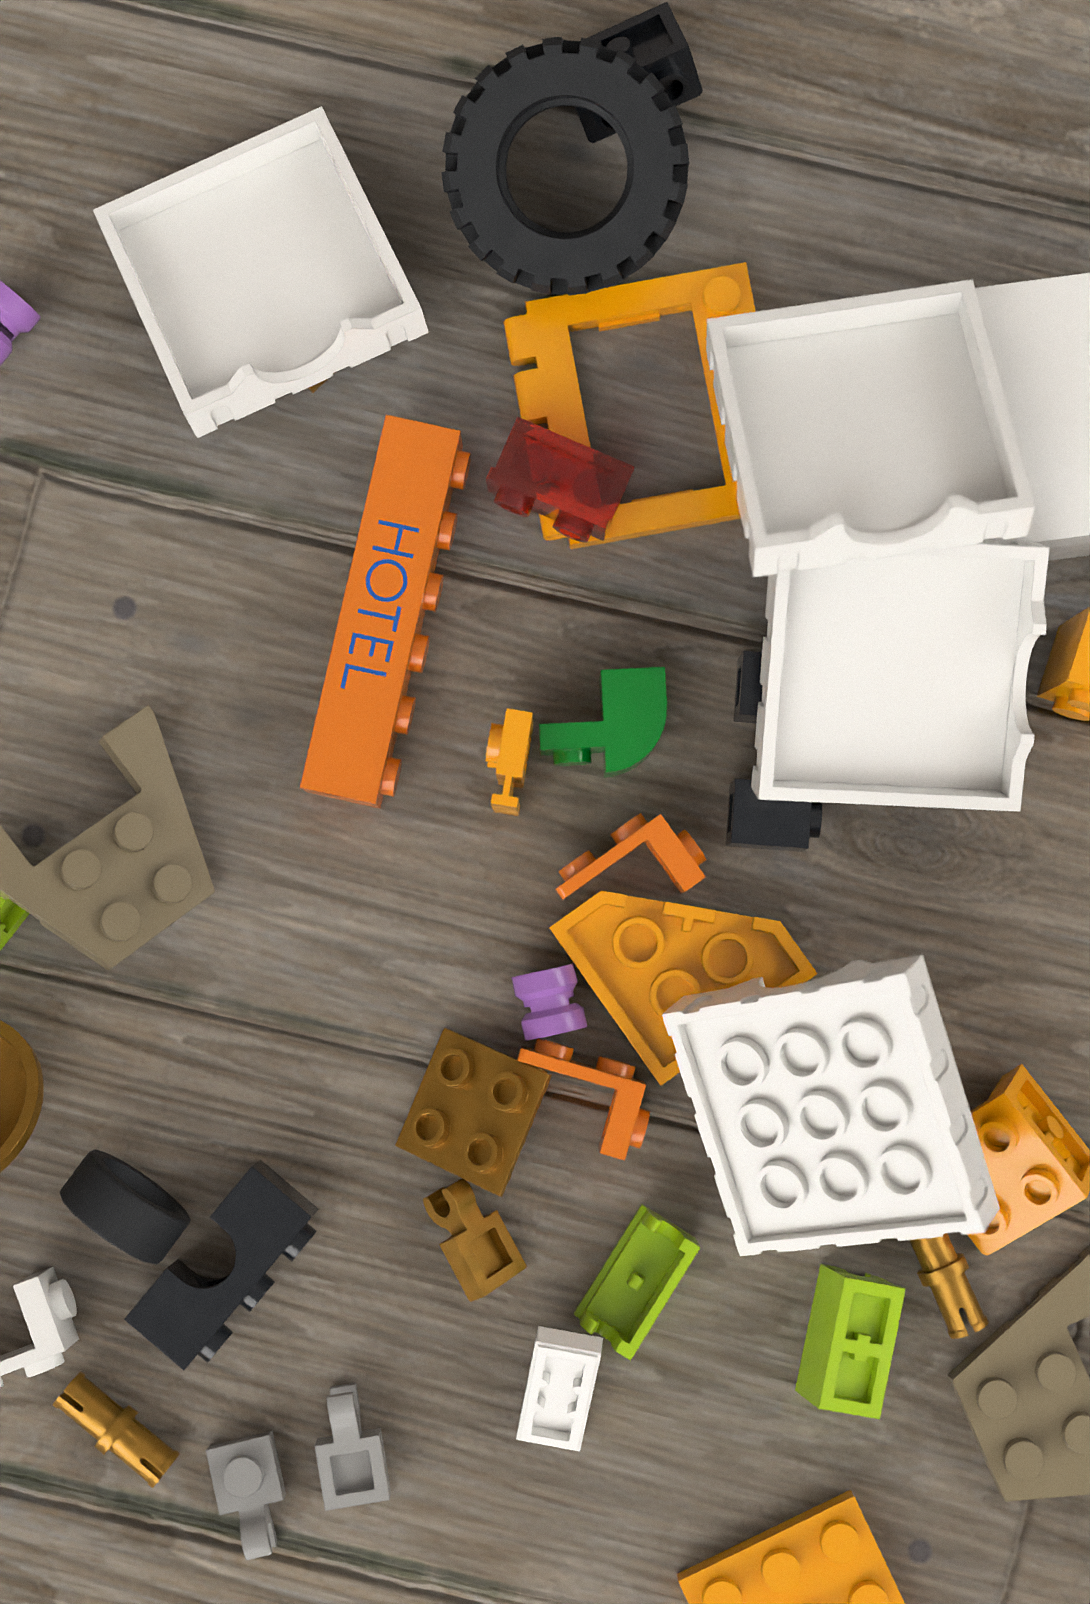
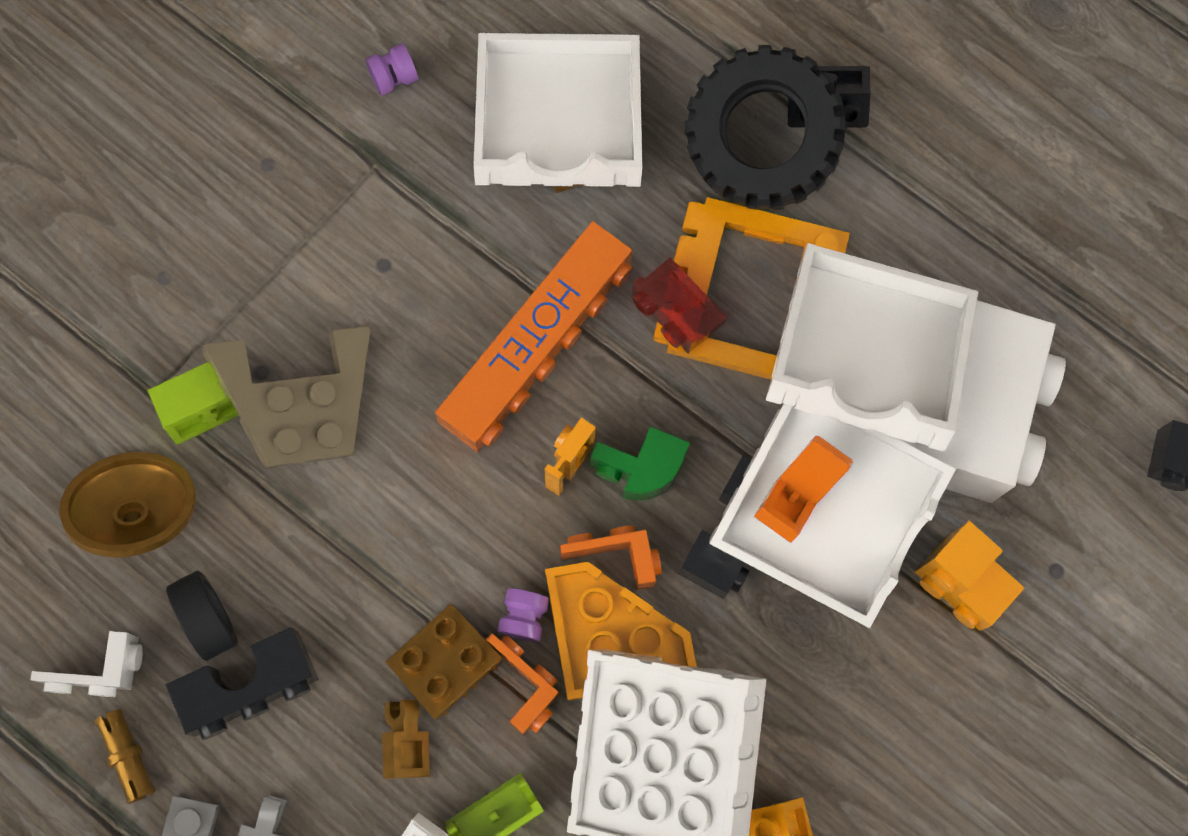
camera: 20 degrees right, 10 degrees down
(848, 670) = (802, 487): none -> orange bracket

